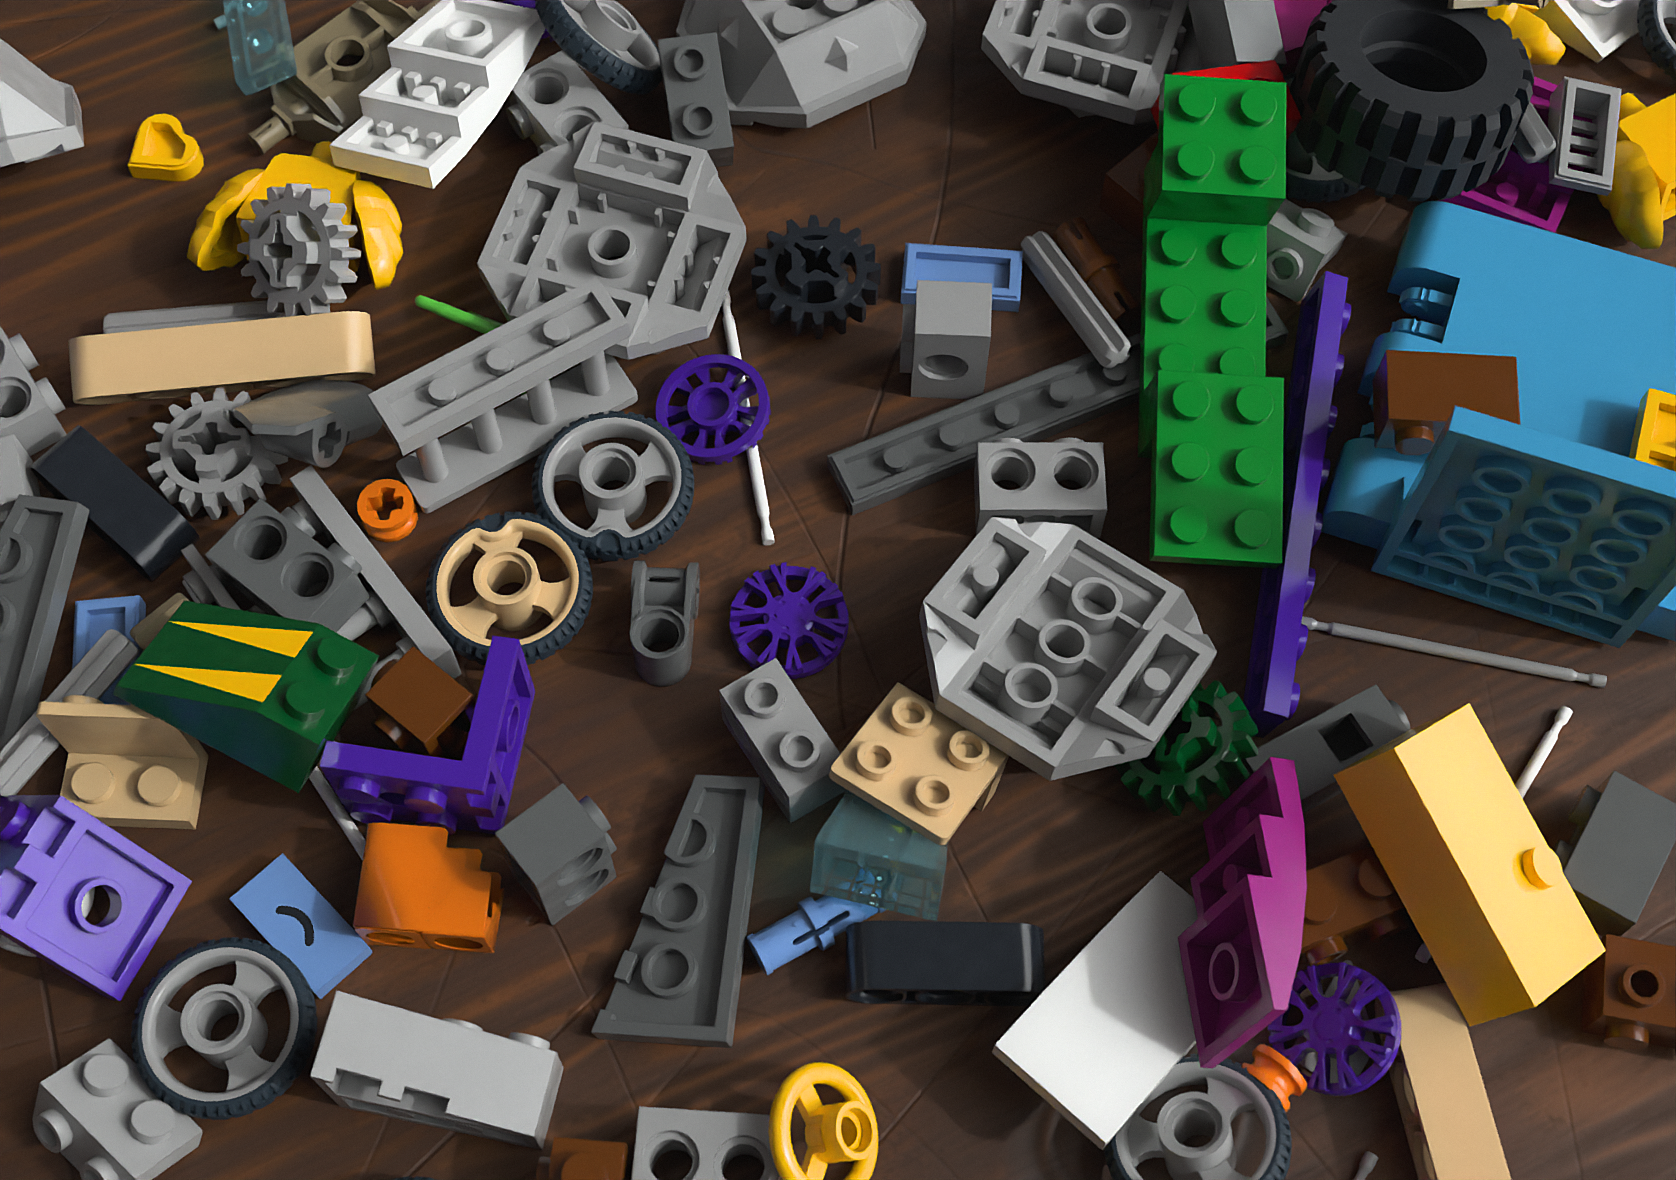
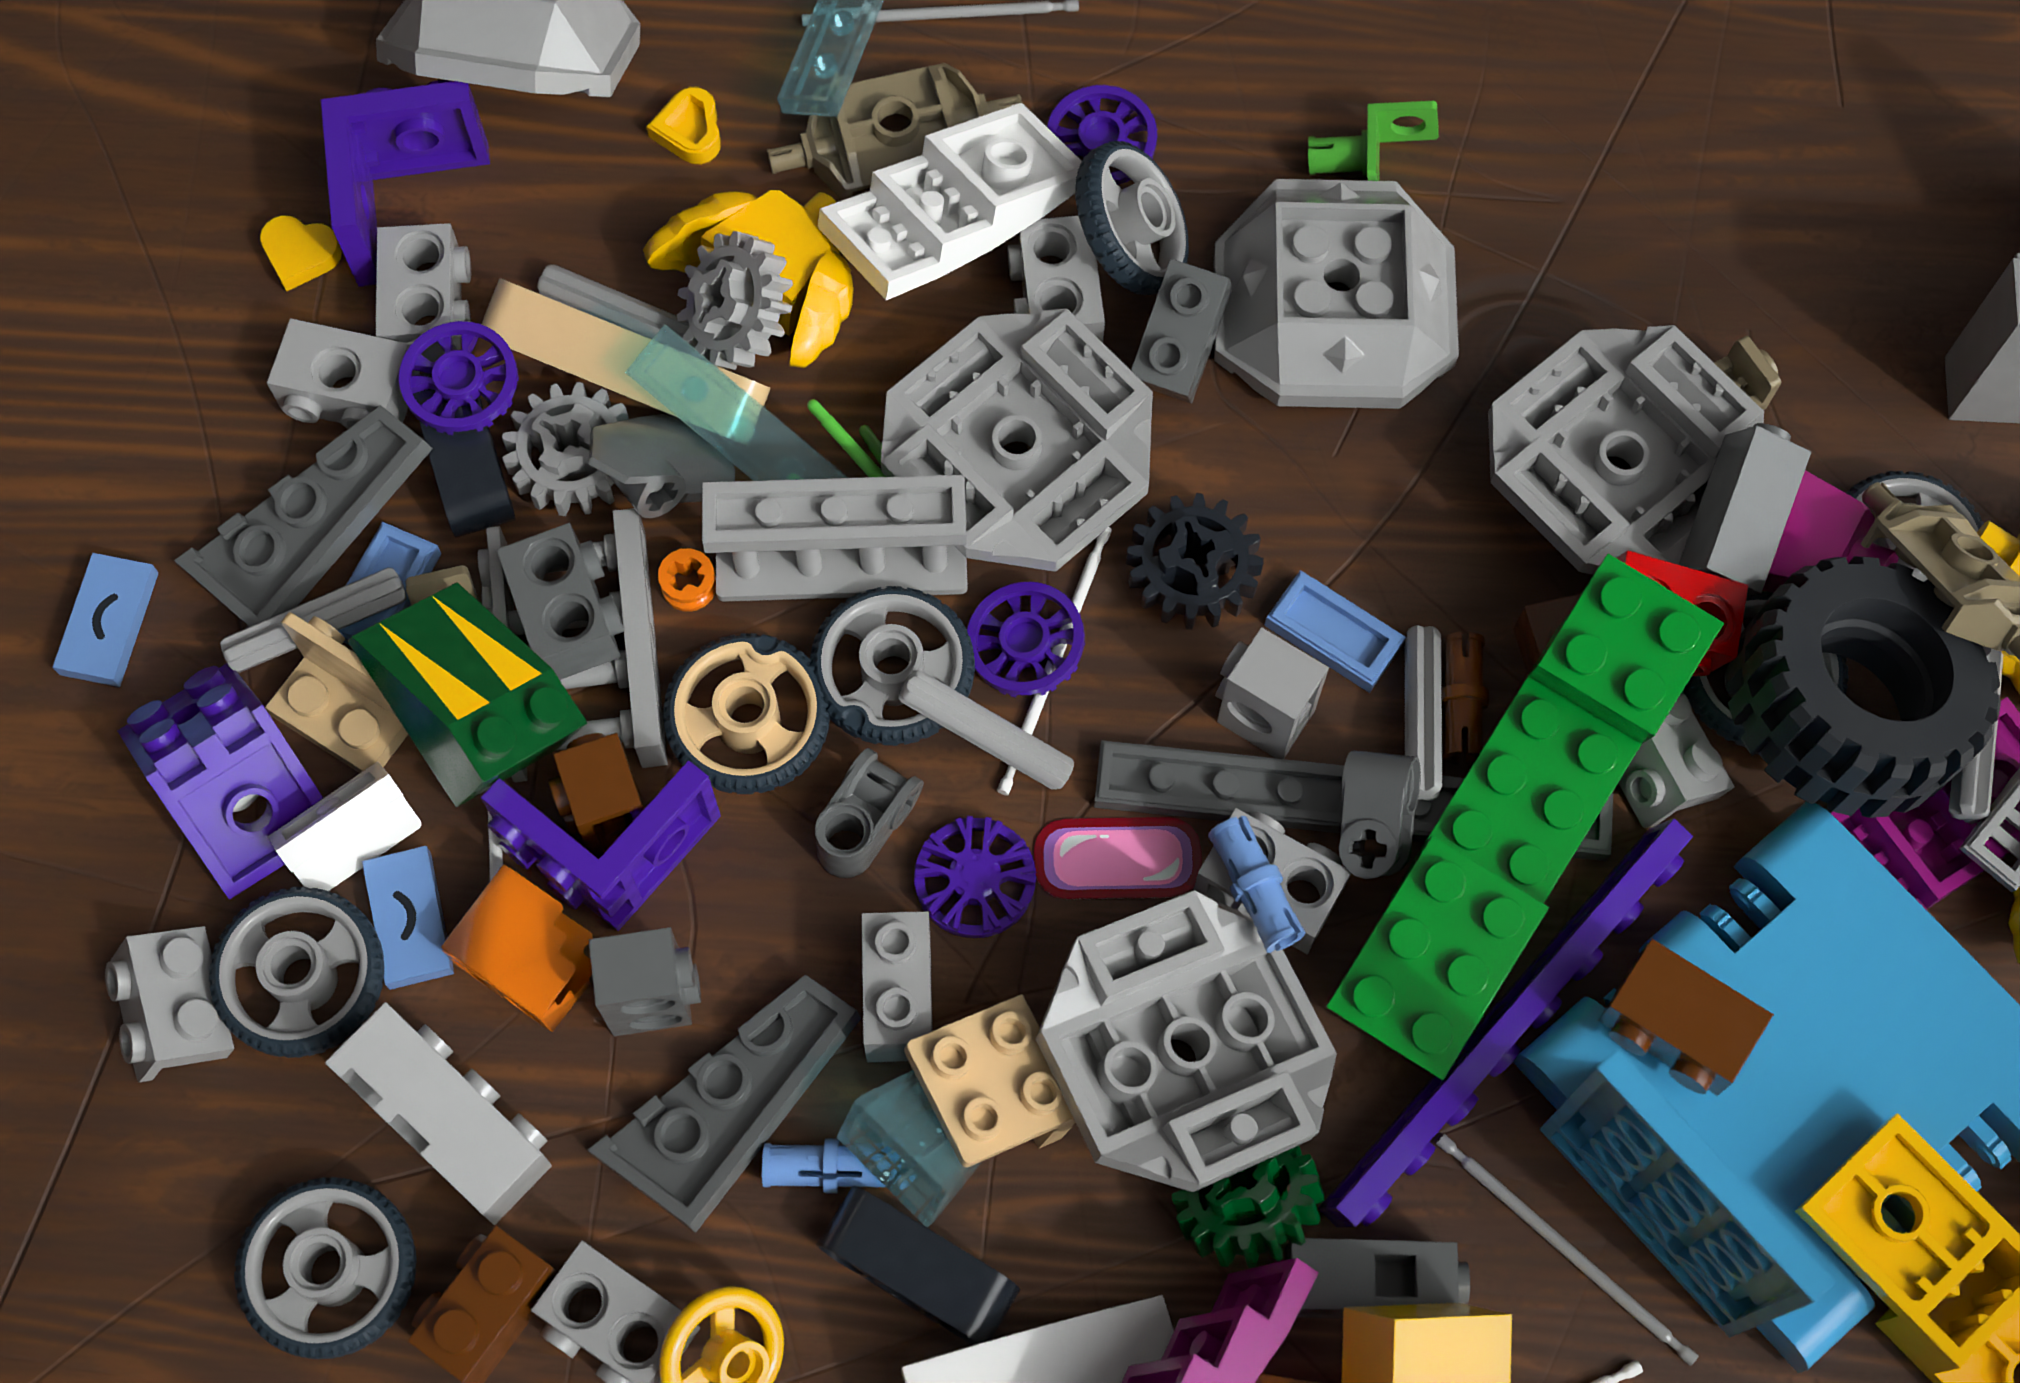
camera: 30 degrees right, 5 degrees up
(79, 437) = (458, 377): none -> dark purple wheel
(198, 876) = (345, 829): none -> white panel
(332, 344) = (725, 412): none -> clear light blue tile
(727, 492) = (986, 730): none -> light grey axle
(897, 544) = (1117, 858): none -> sticker
(1037, 487) = (1256, 884): none -> medium blue pin
(1092, 374) = (1380, 804): none -> dark grey piece

